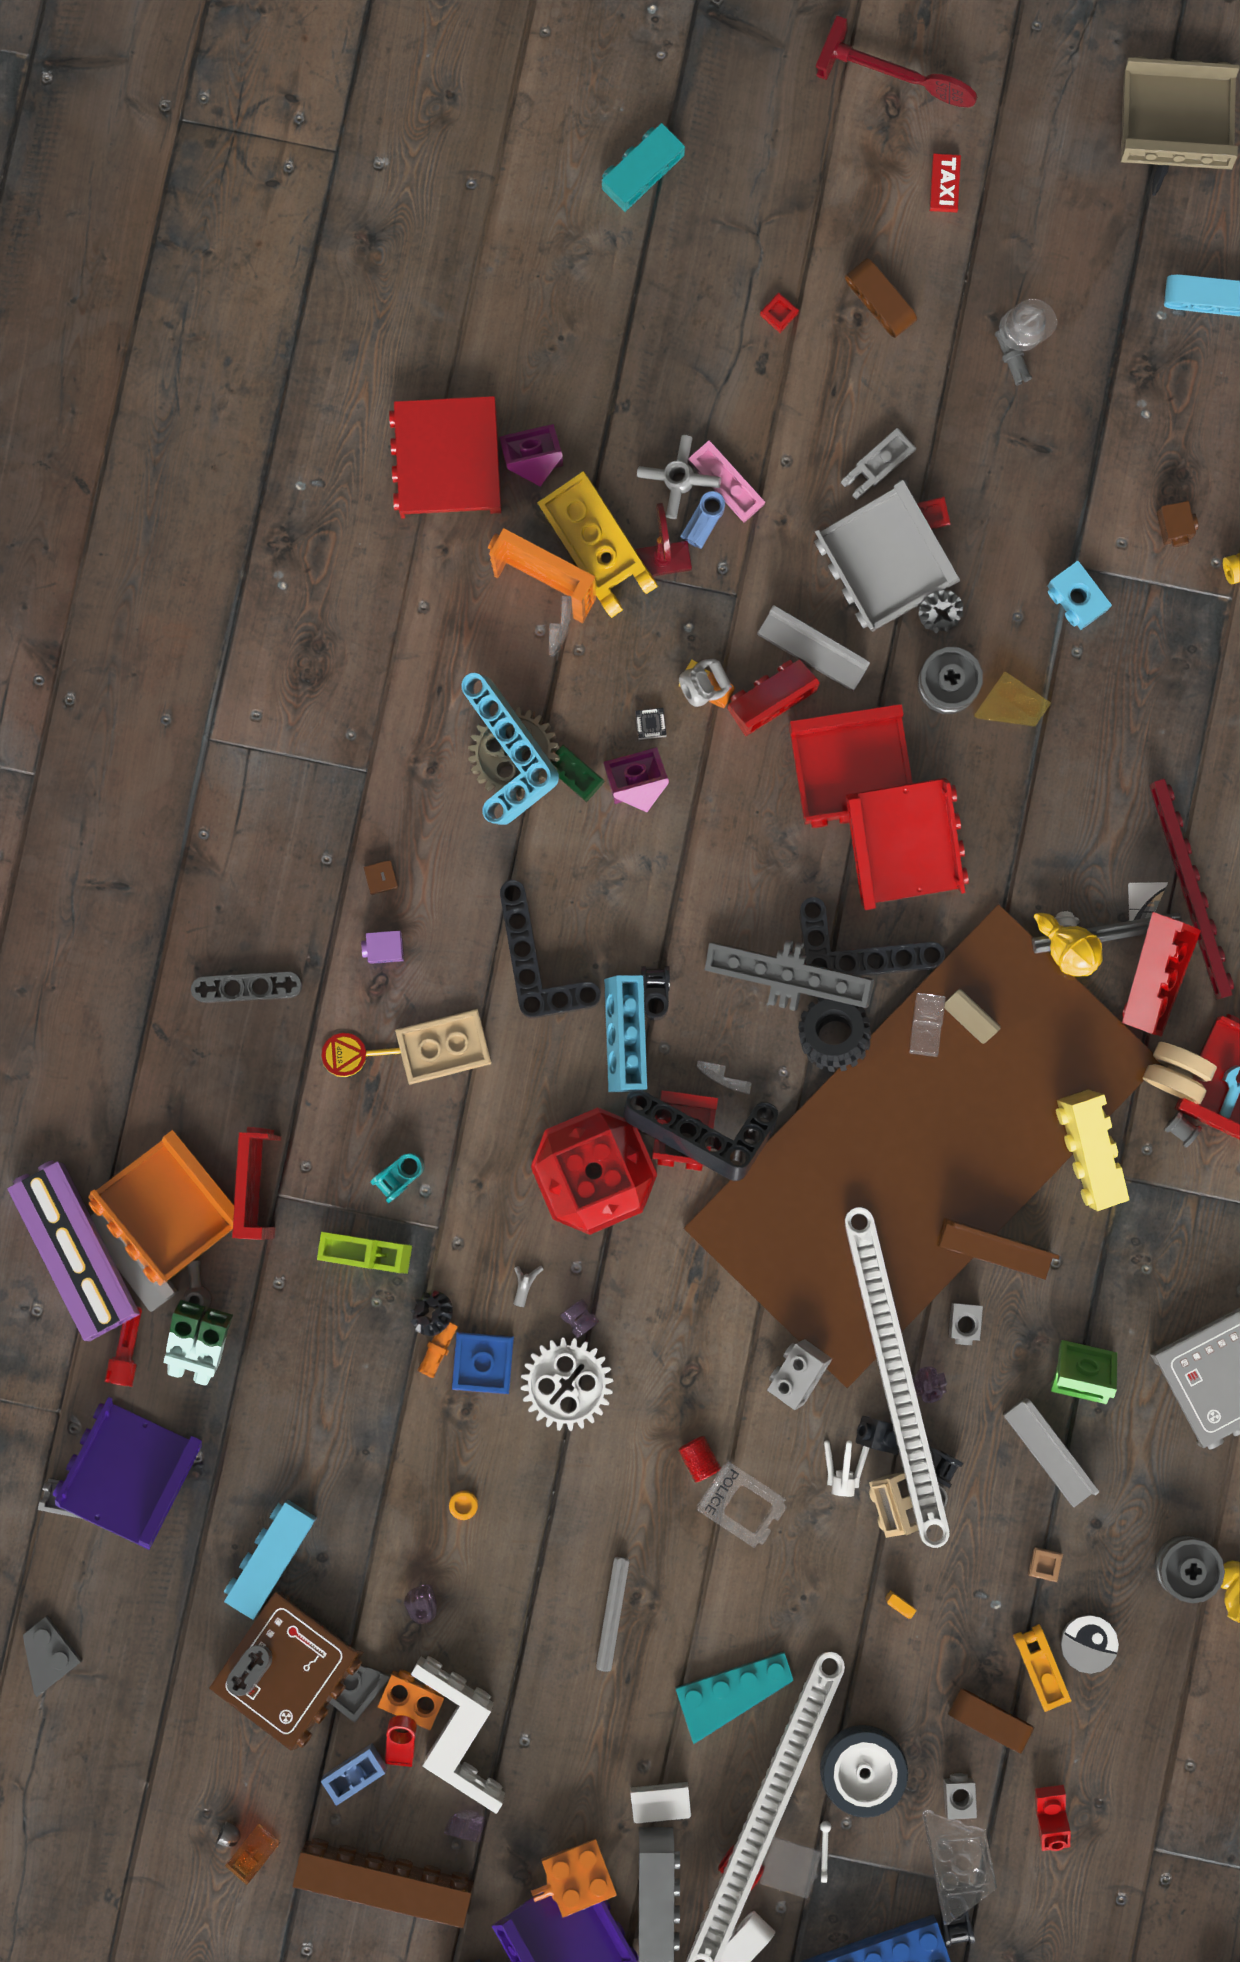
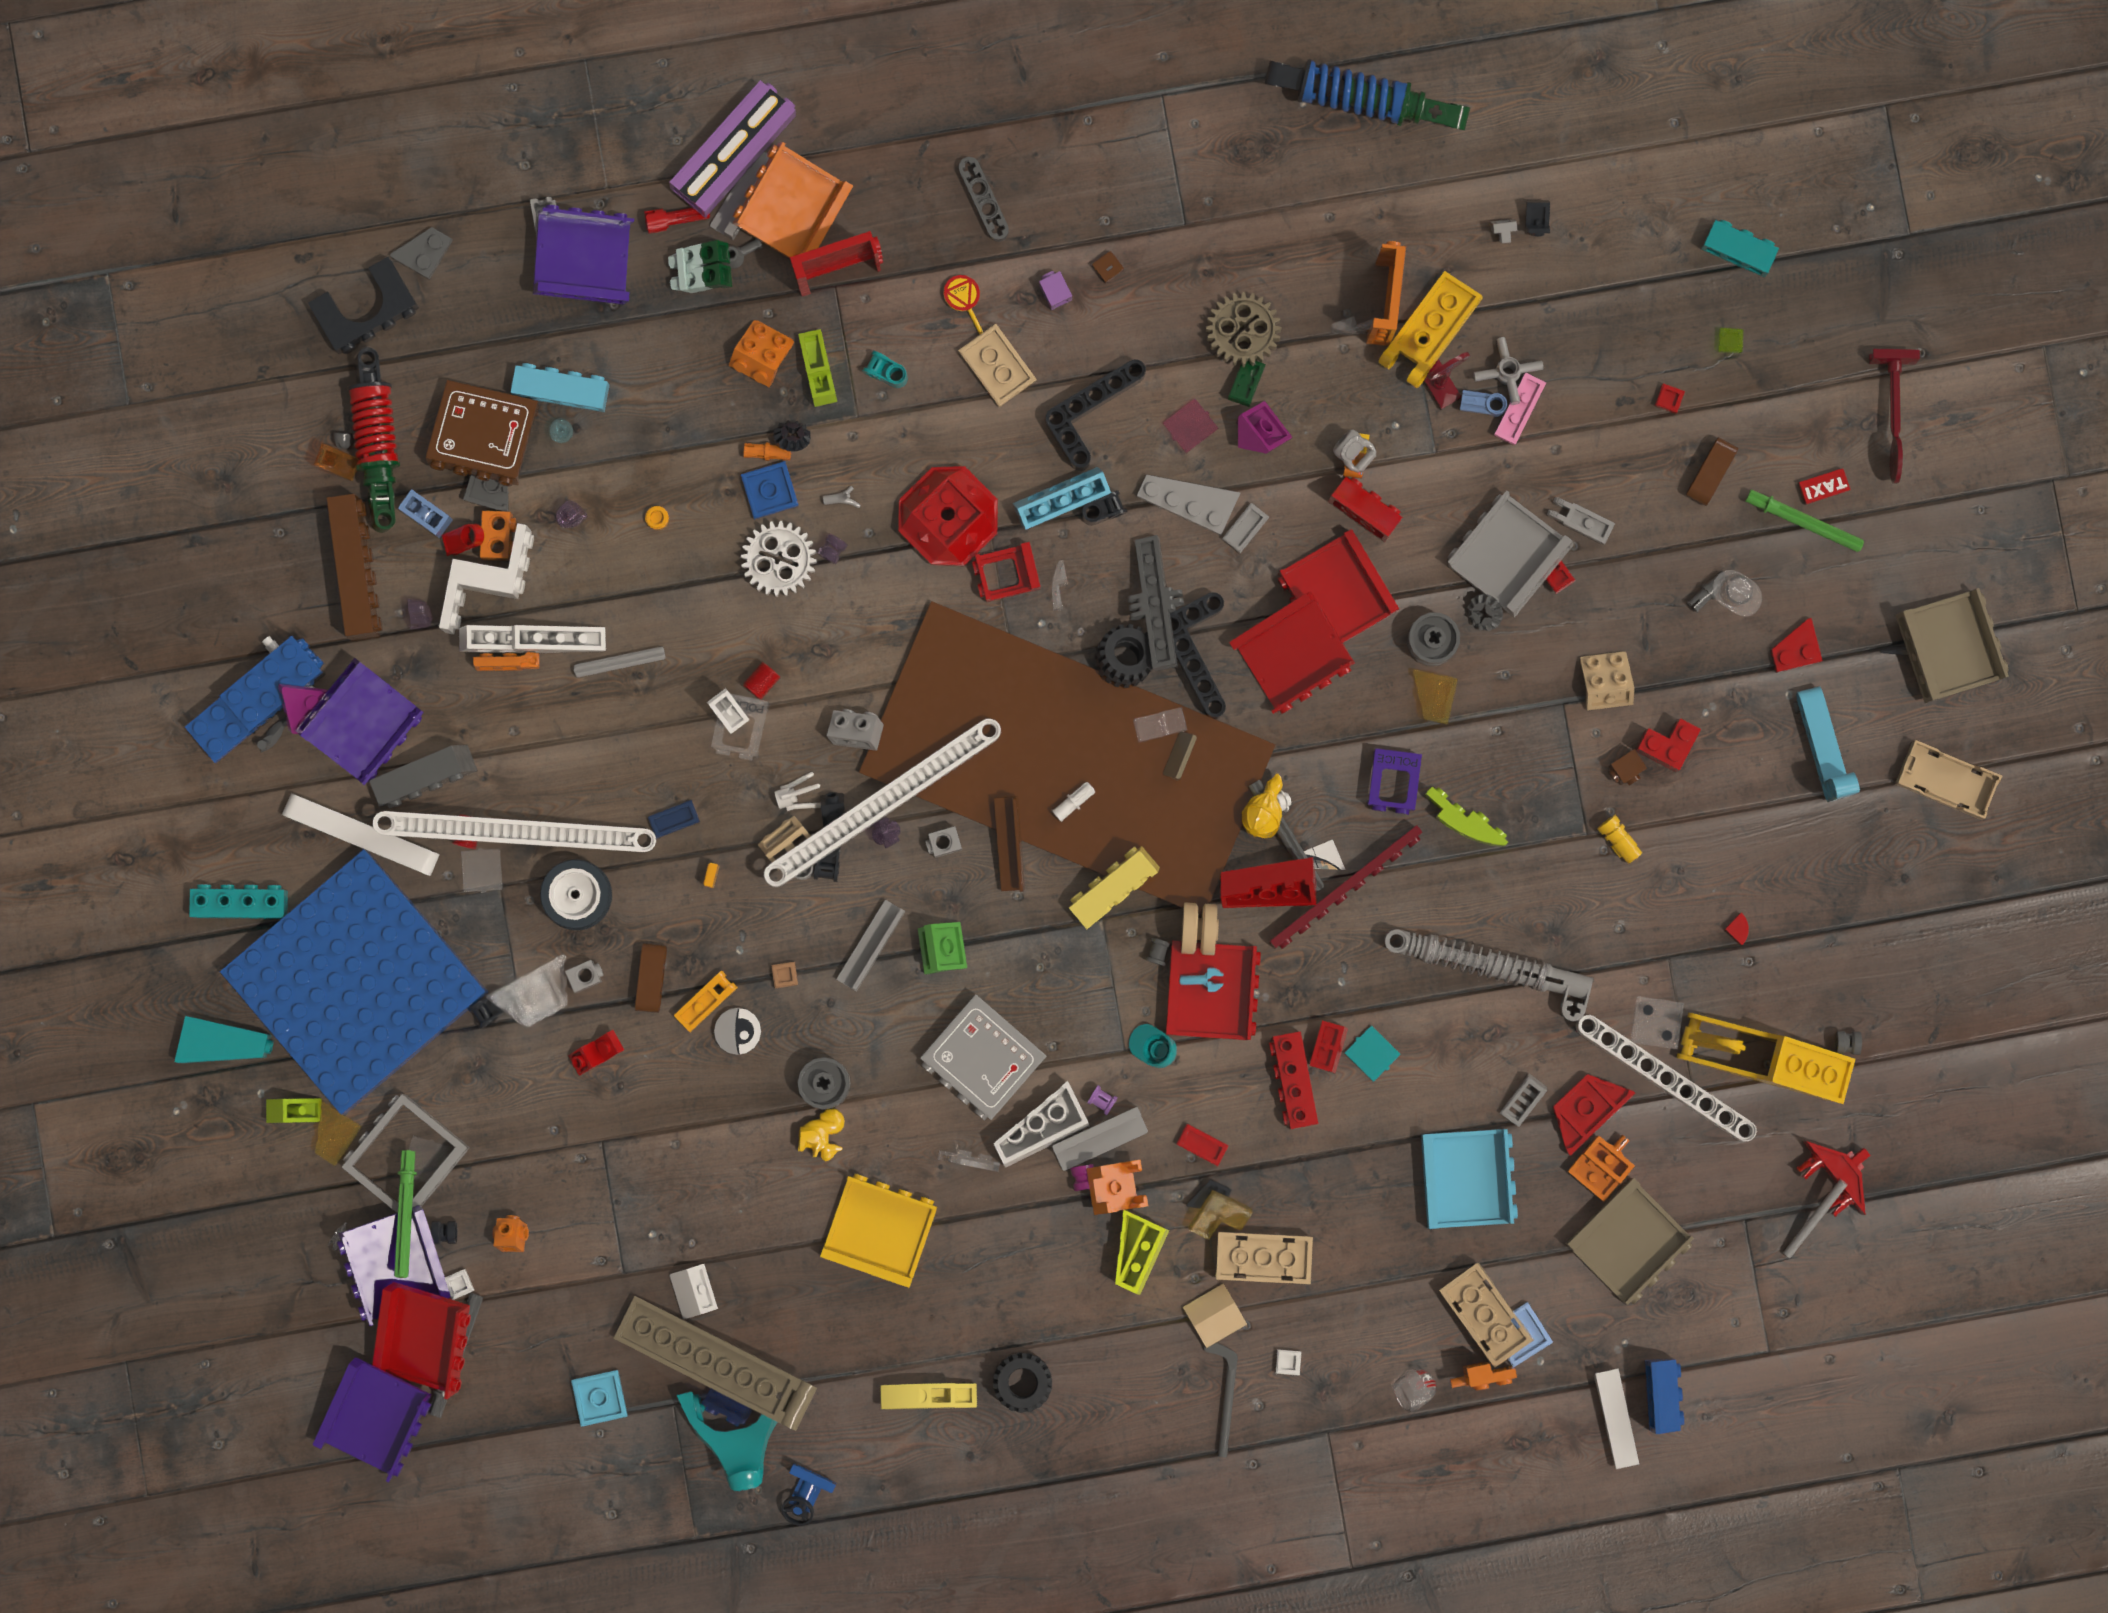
camera: 65 degrees right, 0 degrees up
(95, 1711) = (396, 304): none -> black arch
(236, 1800) = (373, 438): none -> piece
(244, 1666) = (473, 398): dark grey beam -> none
(293, 519) = (1396, 100): none -> piece
(319, 1577) = (561, 430): none -> clear light blue tile
(321, 1310) = (760, 352): none -> orange bracket
(446, 455) = (1452, 187): red panel -> none
(513, 747) = (1245, 325): medium azure beam -> none
(516, 418) = (1504, 227): none -> light grey tile
(518, 375) = (1537, 217): none -> black bracket
(532, 453) = (1481, 251): magenta slope -> none
(548, 1707) = (531, 639): none -> white brick
(562, 1742) = (508, 662): none -> orange hinge
(576, 1878) = (413, 709): orange plate -> none
(598, 856) = (1190, 425): none -> clear pink piece
(650, 723) = (1308, 425): tile -> none
(660, 1802) = (492, 753): white panel -> none
(687, 887) = (1193, 502): none -> light grey wing
(702, 1135) = (1006, 587): black beam -> none
(723, 1512) = (728, 711): none -> white slope
(725, 1695) = (591, 771): teal wing -> none
(739, 840) = (1245, 528): none -> light grey tile
(741, 219) = (1730, 340): none -> clear neon green tile
(813, 648) = (1416, 526): light grey panel -> none
(818, 1622) = (674, 819): none -> dark blue tile
(825, 1826) = (521, 885): white hinge -> none
(942, 250) = (1808, 522): none -> bright green axle
(976, 1157) = (1073, 801): none -> white axle
(1069, 505) = (1607, 680): none -> tan bracket
(1070, 777) = (1398, 761): none -> dark purple window
(1077, 579) = (1549, 703): medium azure brick -> none
(1115, 284) = (1797, 649): none -> red wing
(1174, 723) = (1473, 826): none -> lime slope
(1176, 466) = (1672, 750): none -> red brick

